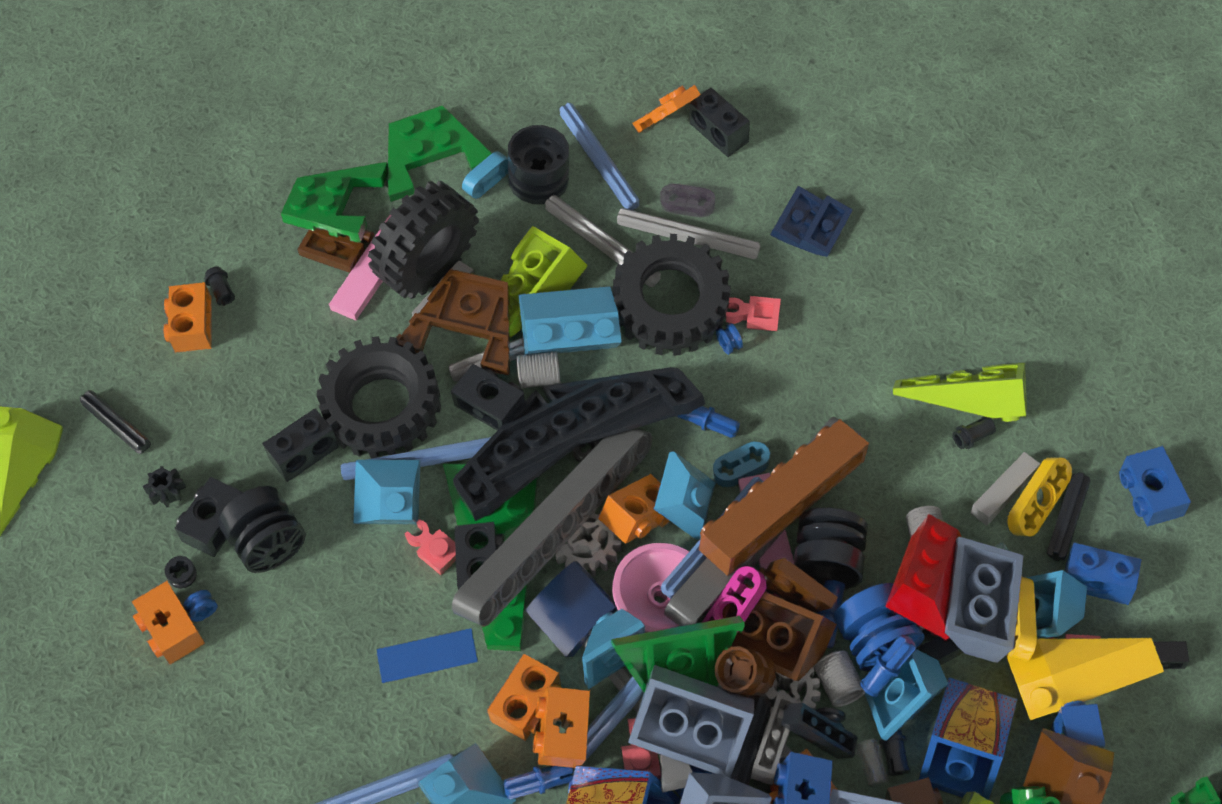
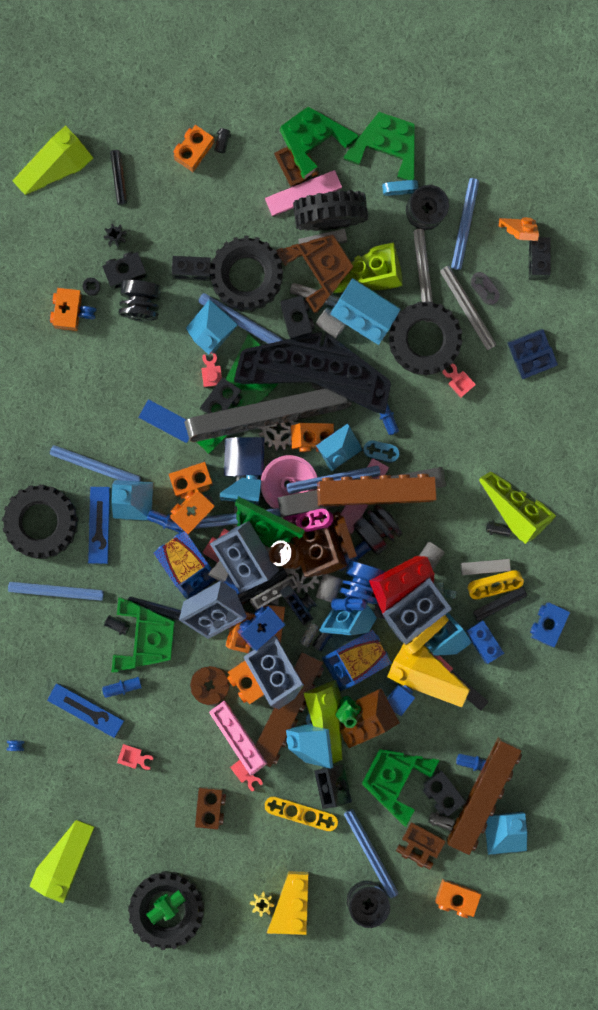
camera: 35 degrees right, 25 degrees up
(729, 338) = (433, 384): blue bush -> none

